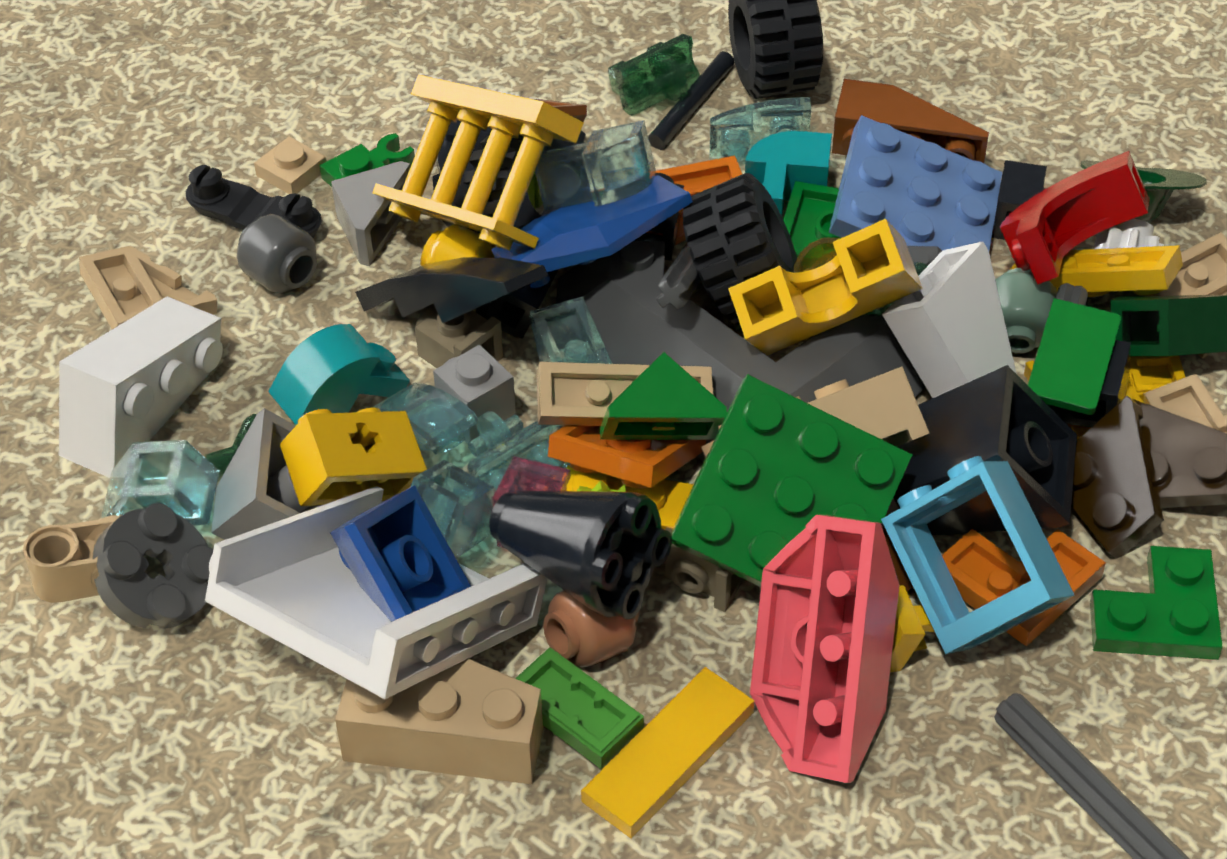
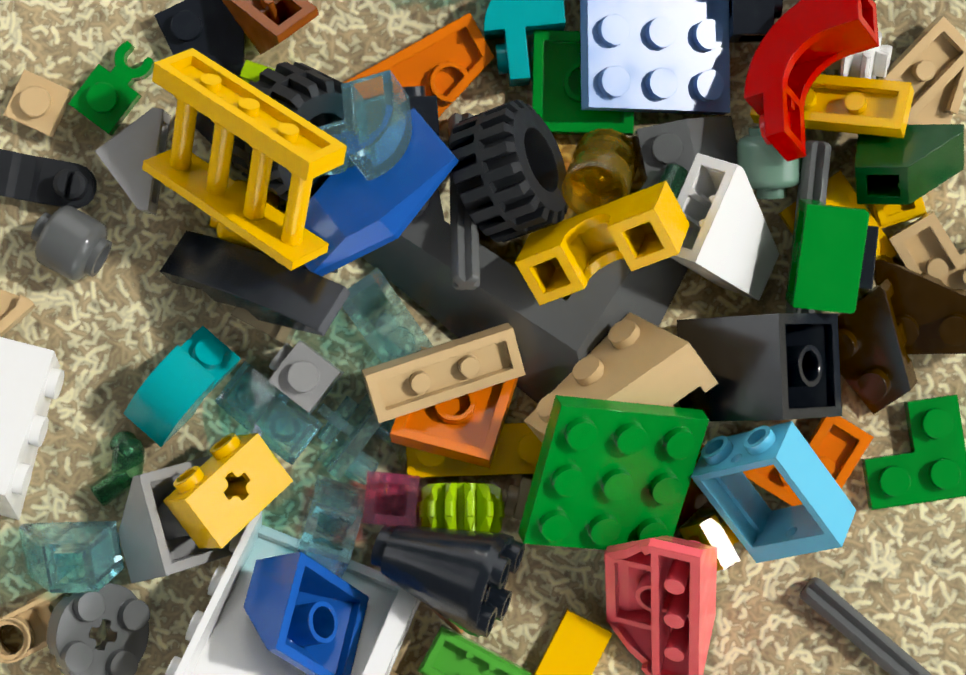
camera: 15 degrees left, 40 degrees up
(663, 406) = (480, 398): green slope -> none

